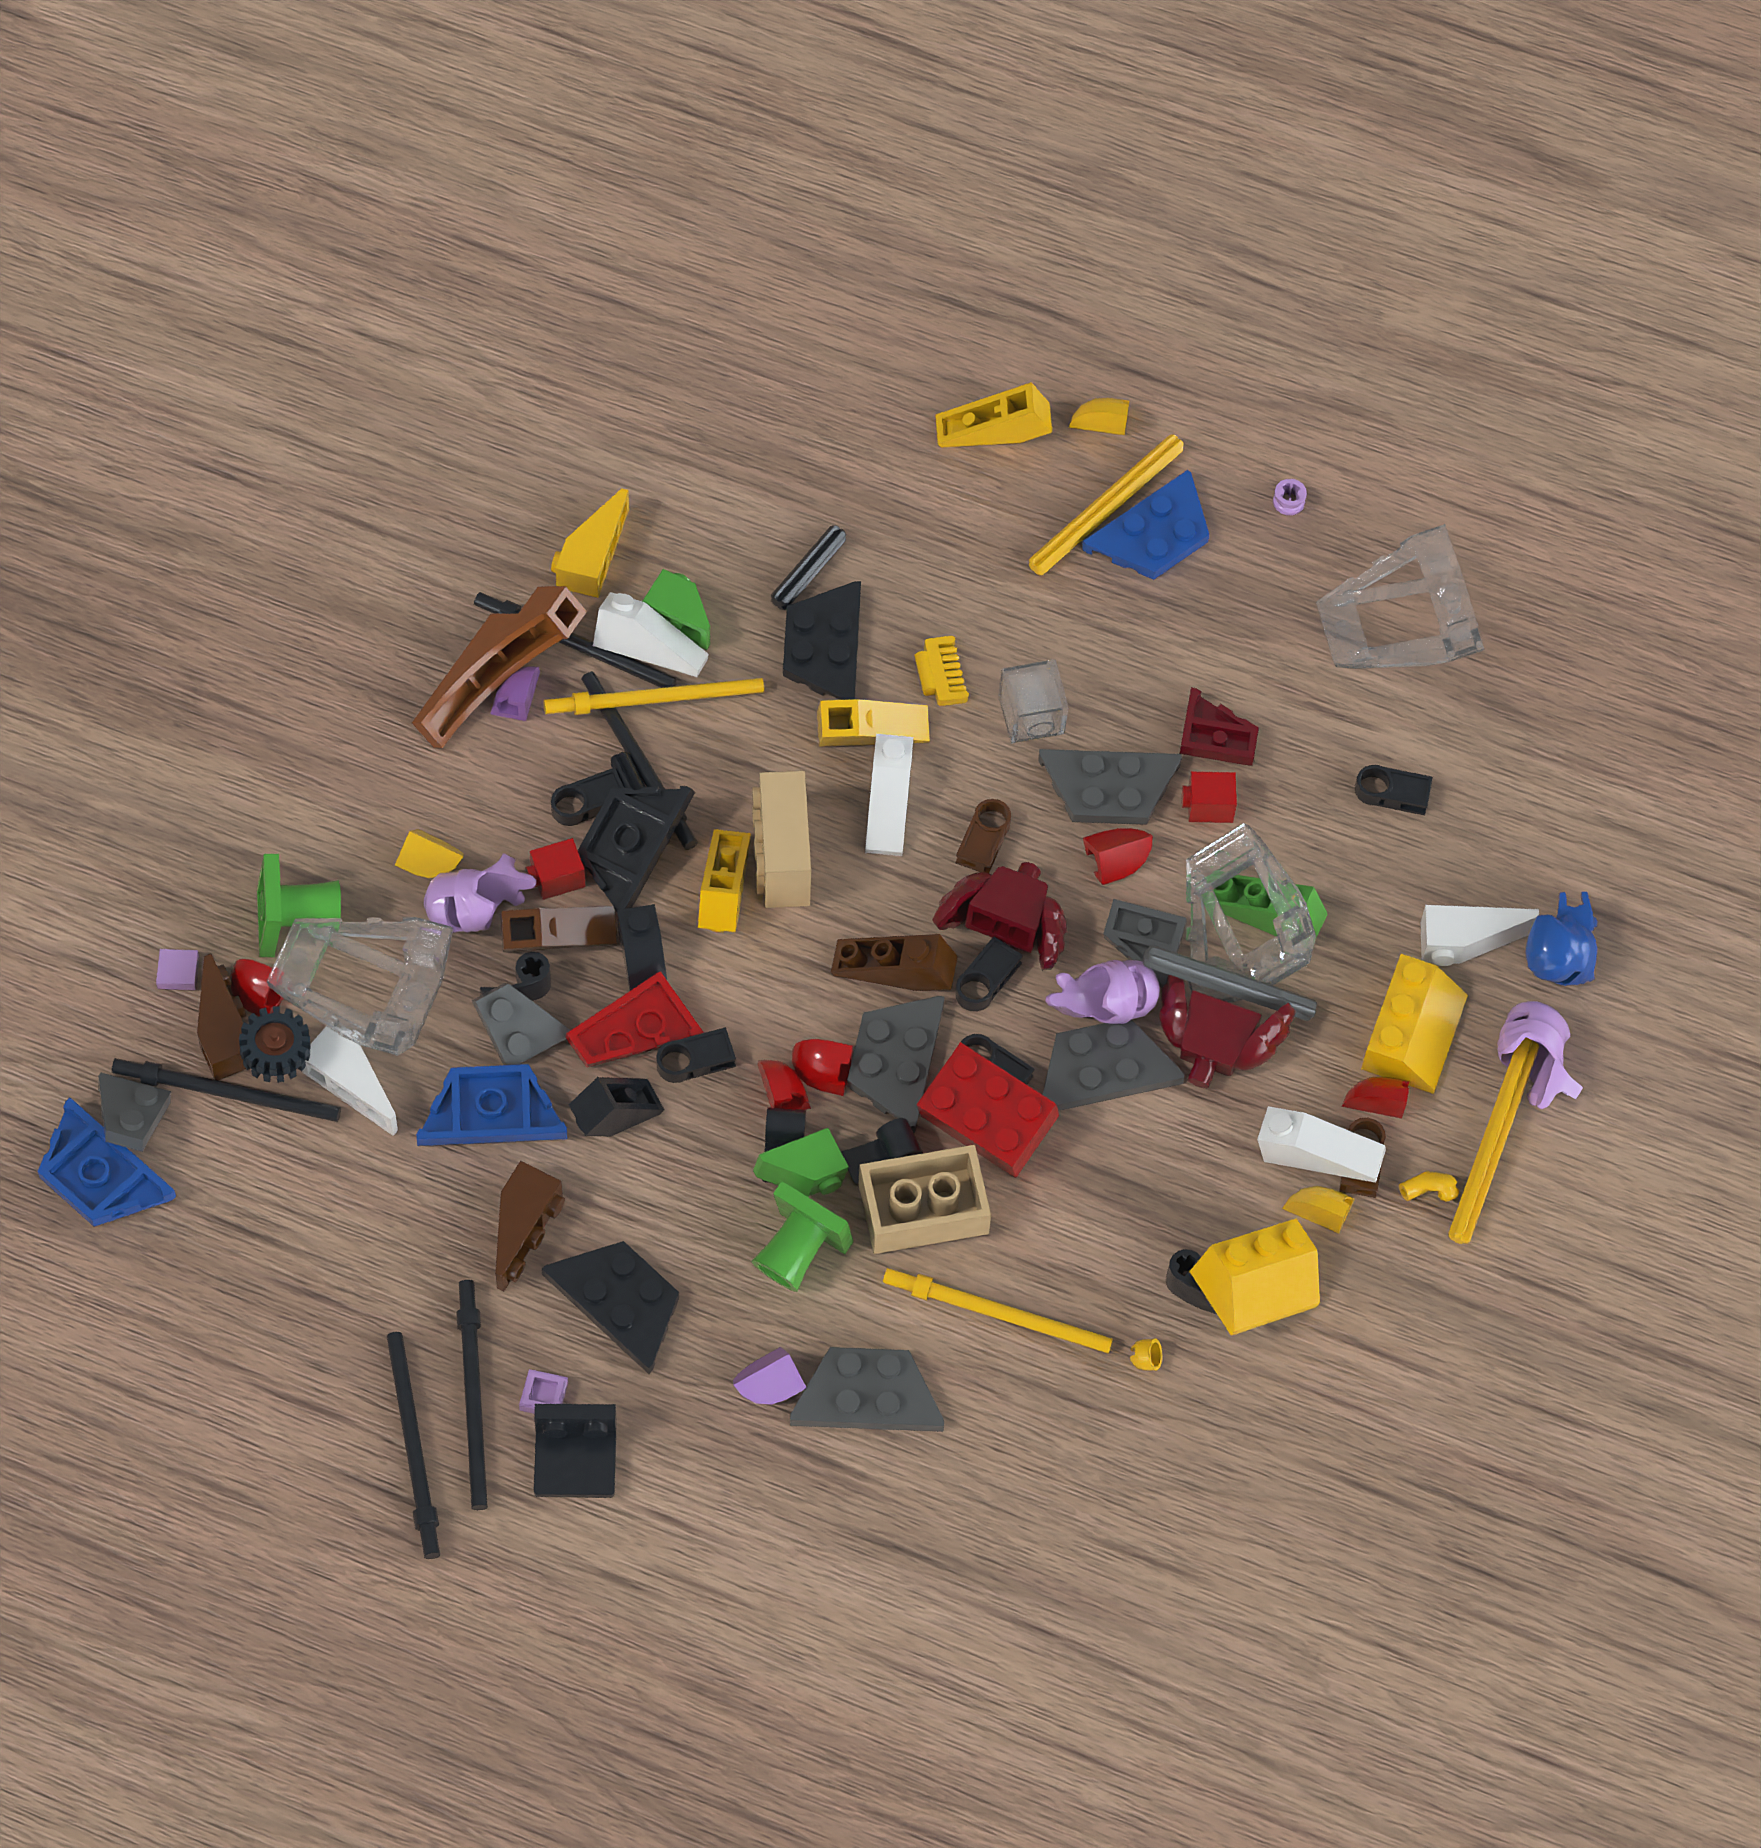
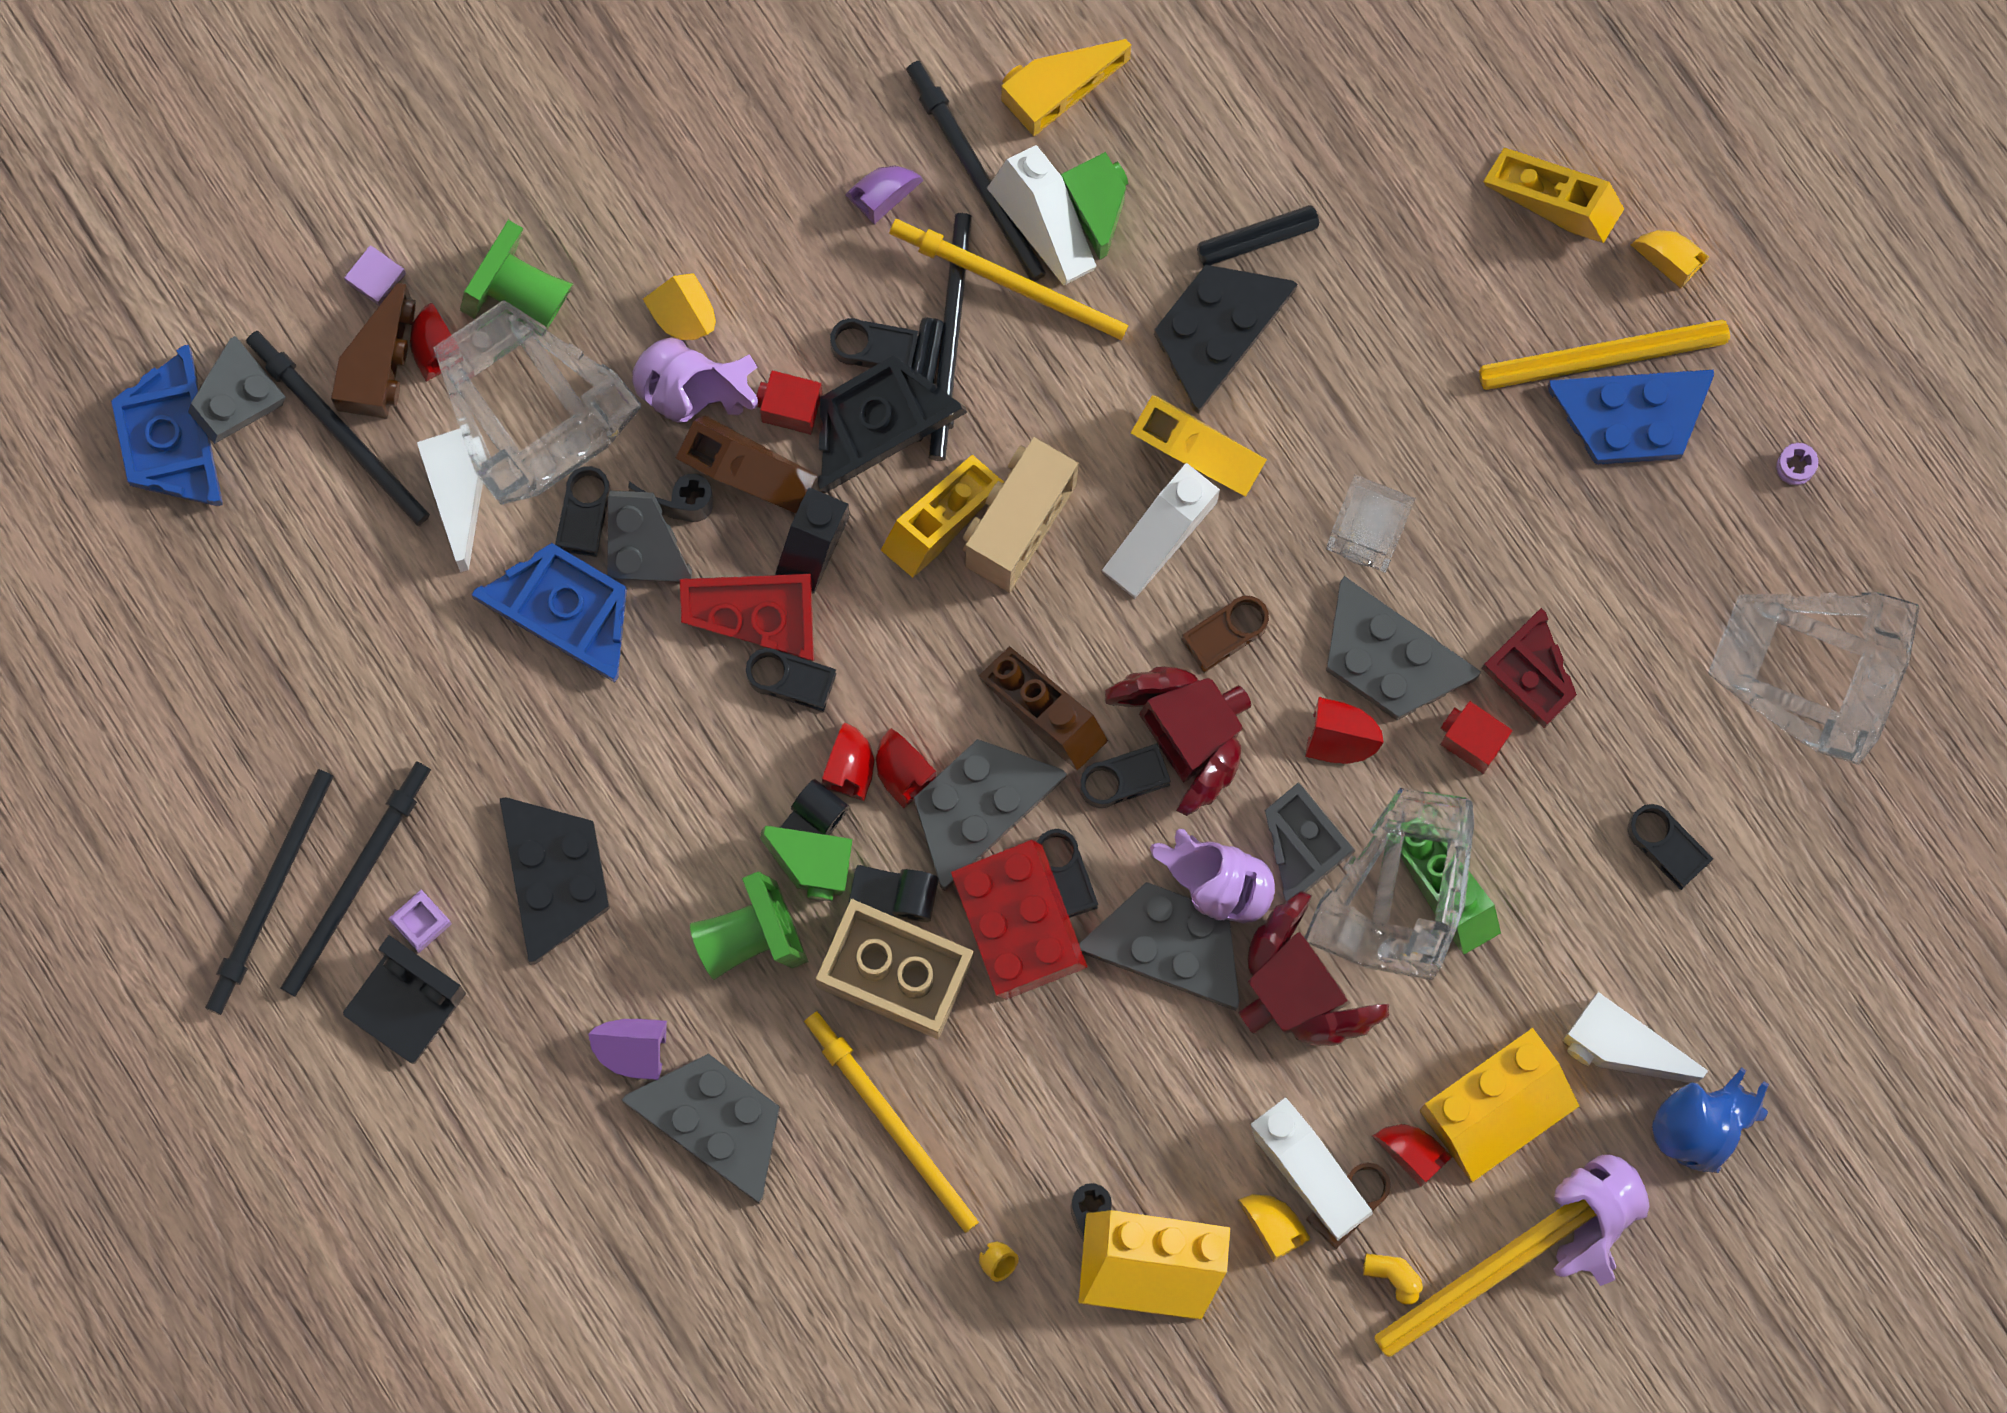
camera: 35 degrees right, 15 degrees up
(274, 1044) = (395, 419): black wheel -> none
(459, 1044) = (582, 522): none -> black piece
(495, 654) = (878, 141): dark orange arch -> none
(525, 1208) = (517, 733): reddish brown slope -> none
(614, 1105) = (678, 681): black slope -> none
(933, 672) = (1300, 425): yellow piece -> none
(1227, 982) = (1342, 946): dark grey axle -> none

